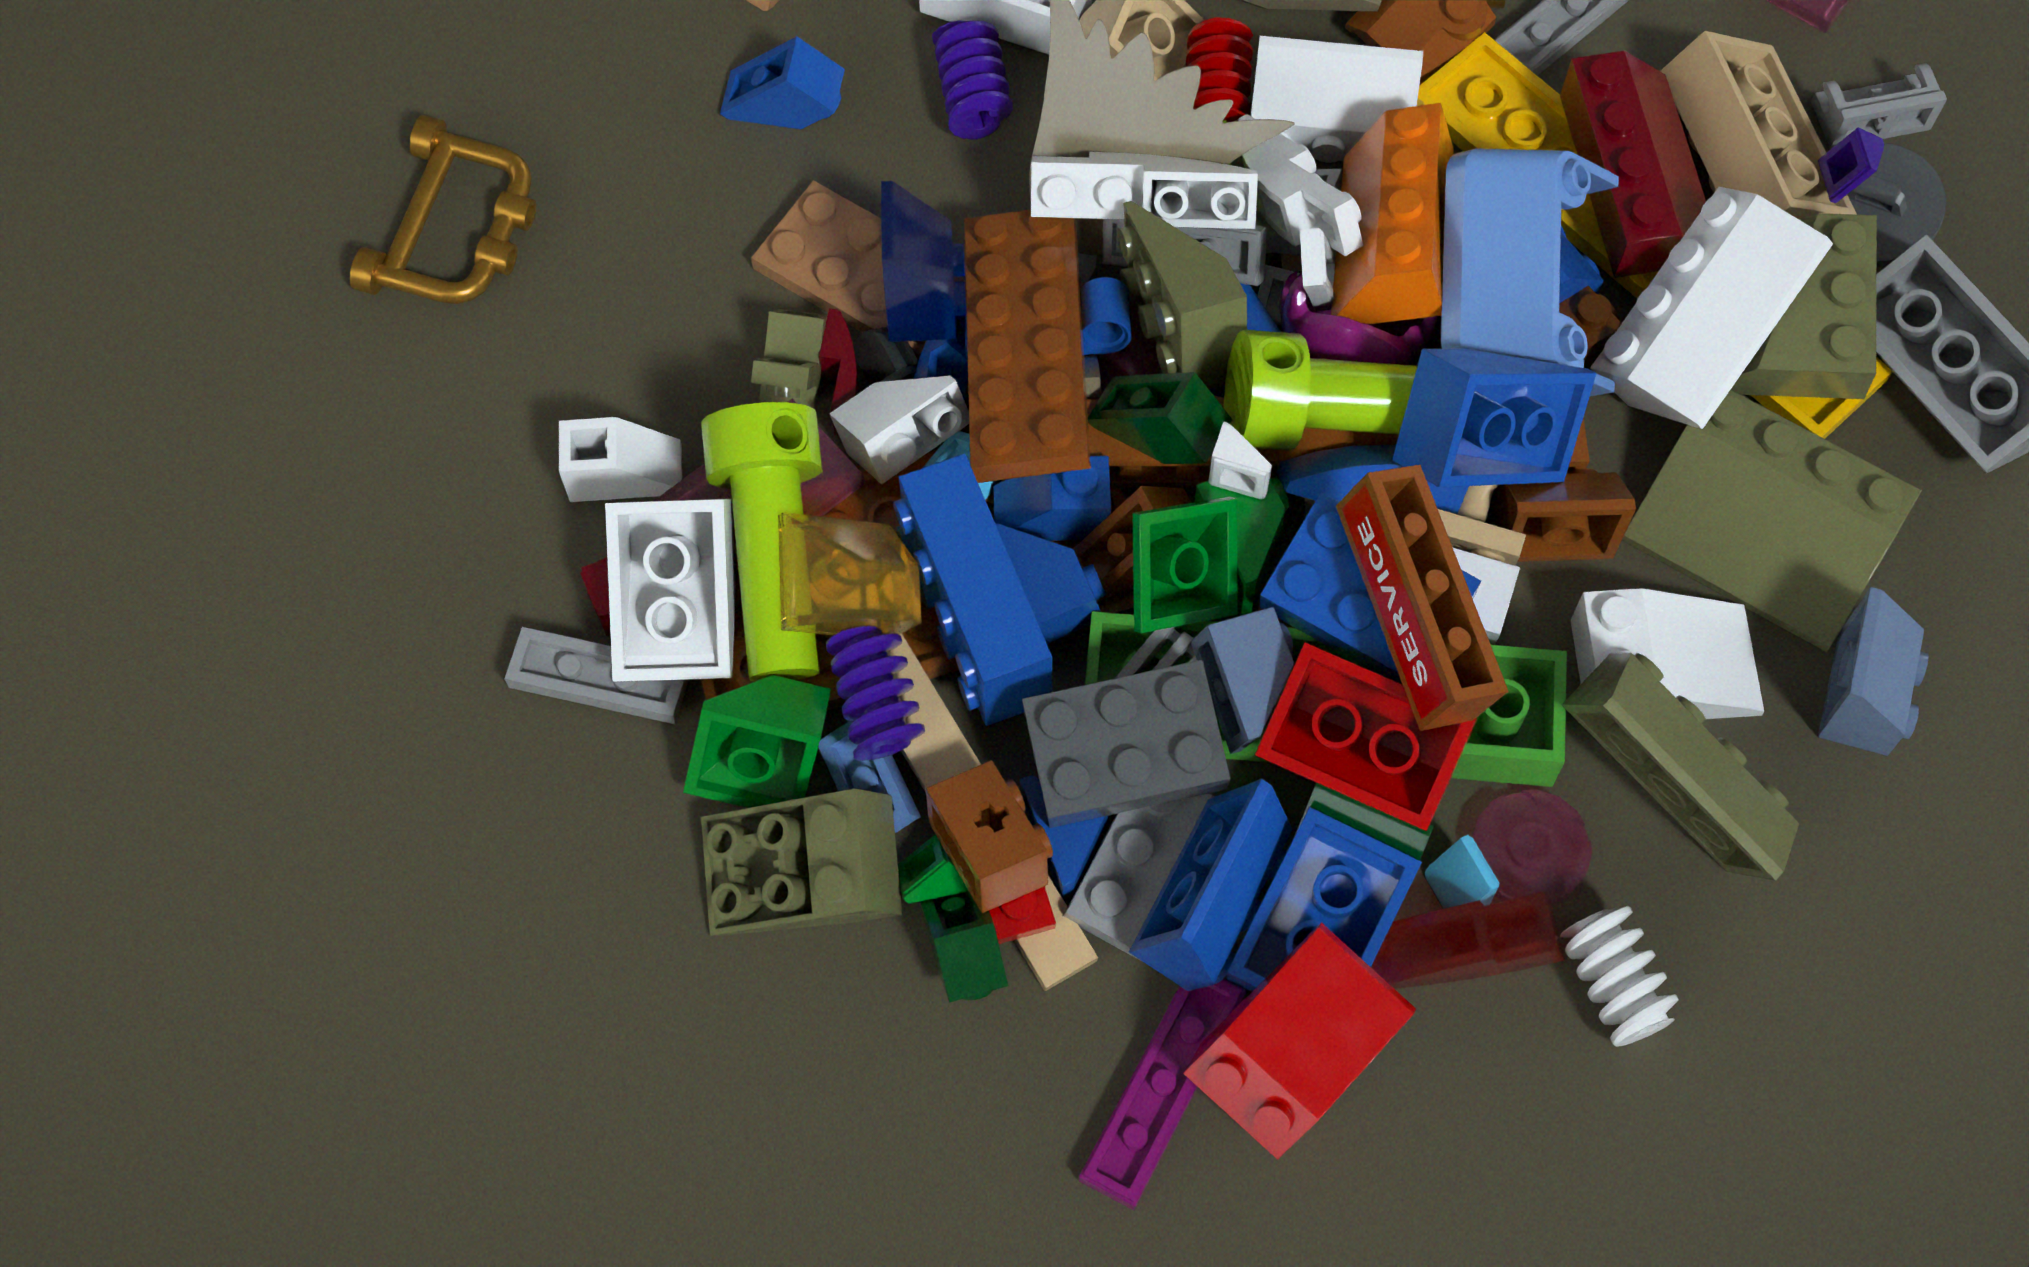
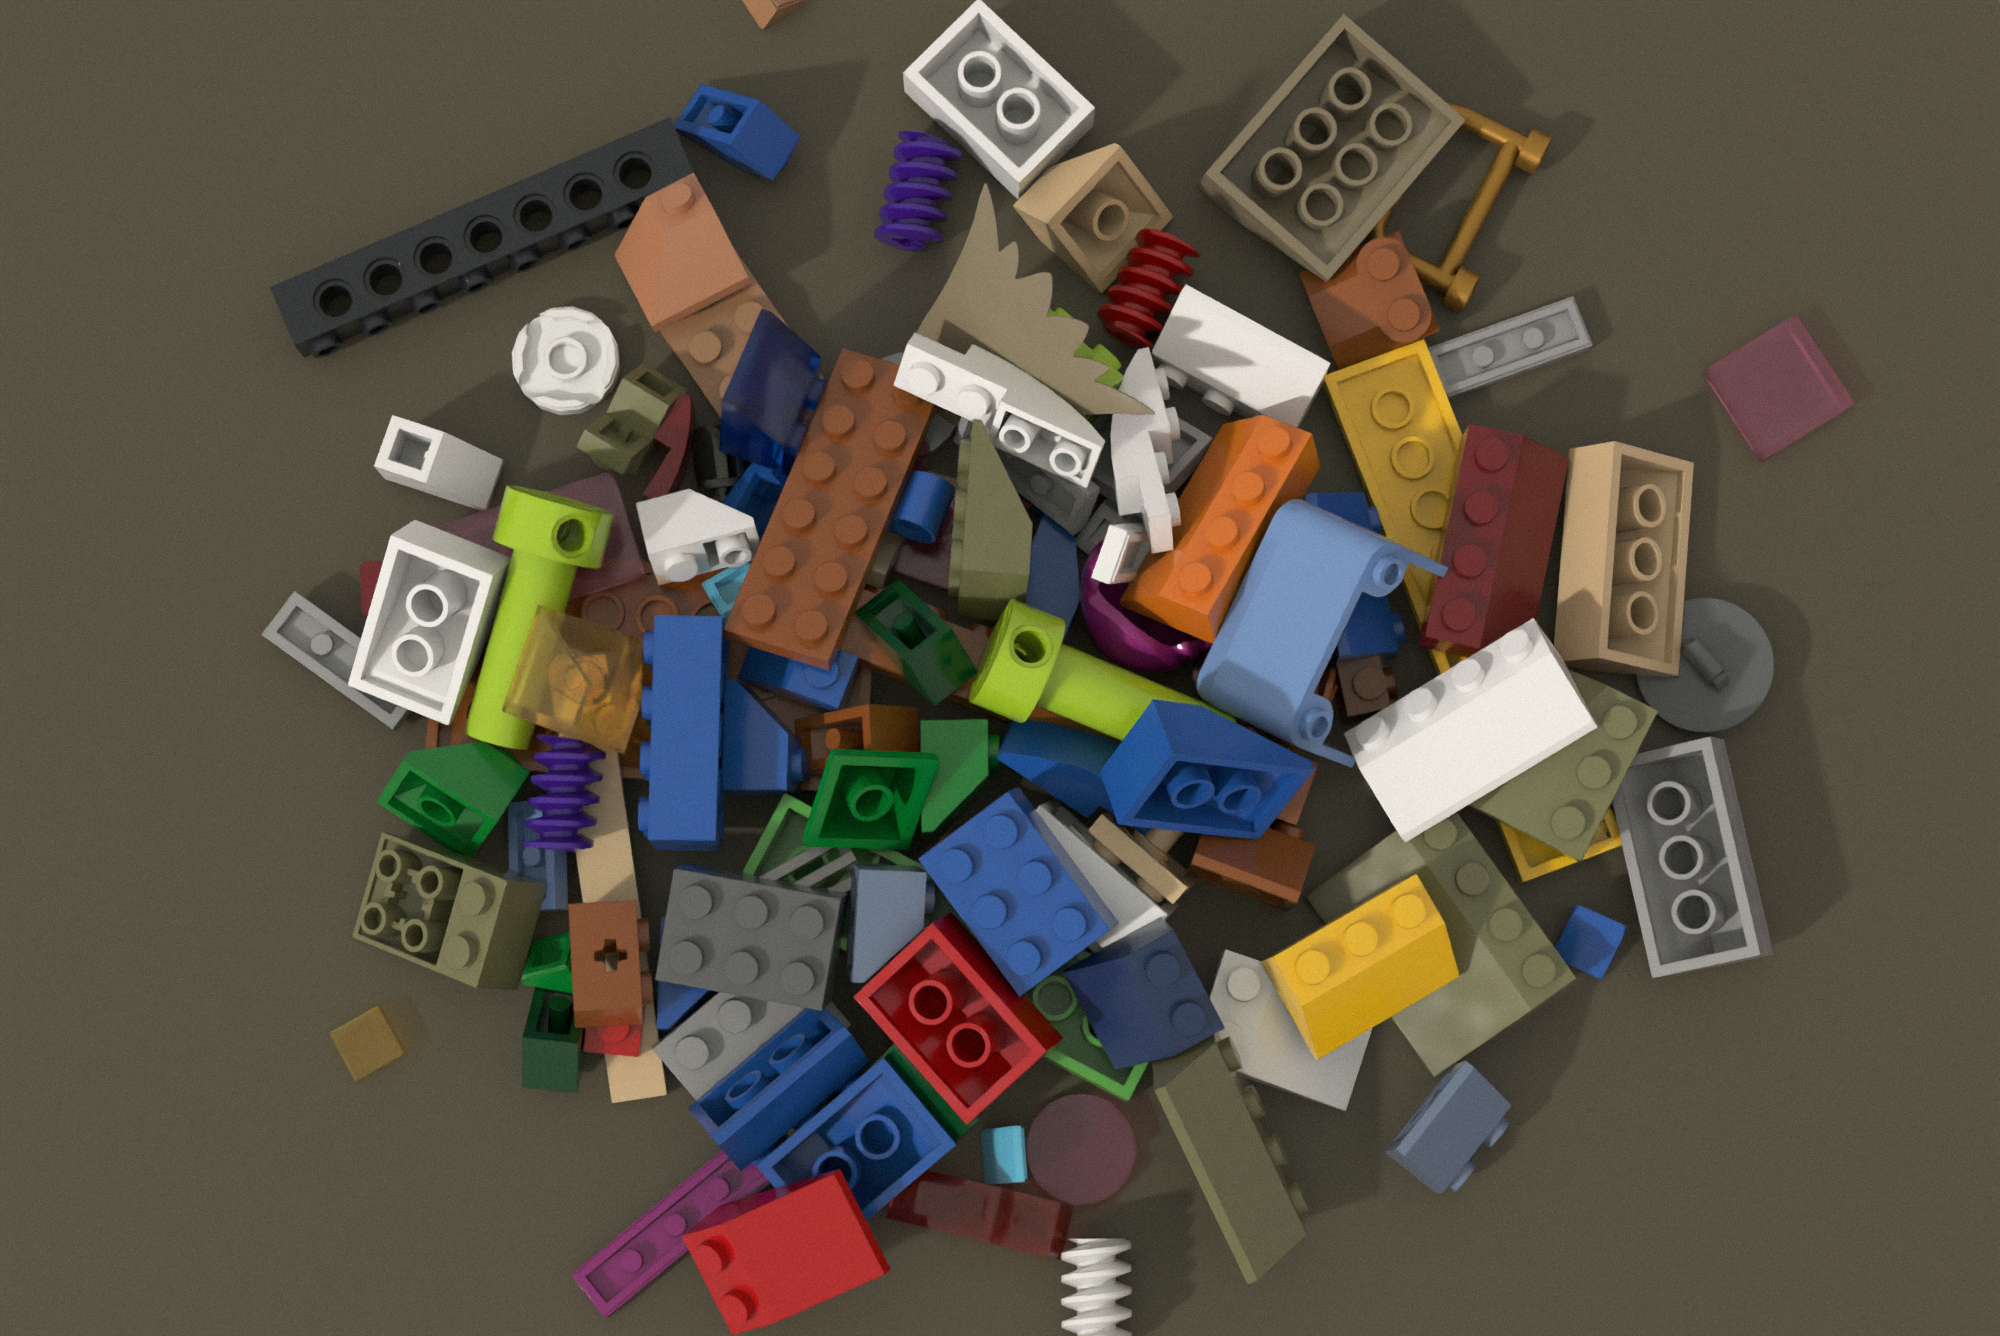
camera: 20 degrees right, 15 degrees up
(493, 253) = (408, 196): pearl gold bar -> none
(553, 262) = (406, 254): none -> black brick
(704, 338) = (566, 360): none -> white tile
(769, 1032) = (367, 1043): none -> clear yellow tile
(774, 196) = (678, 254): none -> nougat slope
(1238, 465) = (954, 723): white slope -> none
(1421, 597) = (1034, 937): dark orange brick -> none
(1548, 642) = (1143, 997): none -> dark blue slope
(1723, 548) = (1363, 966): none -> yellow slope
(1850, 163) = (1688, 628): dark purple slope -> none
(1881, 109) = (1762, 566): light grey hinge -> none
(1910, 460) = (1589, 940): none -> blue slope

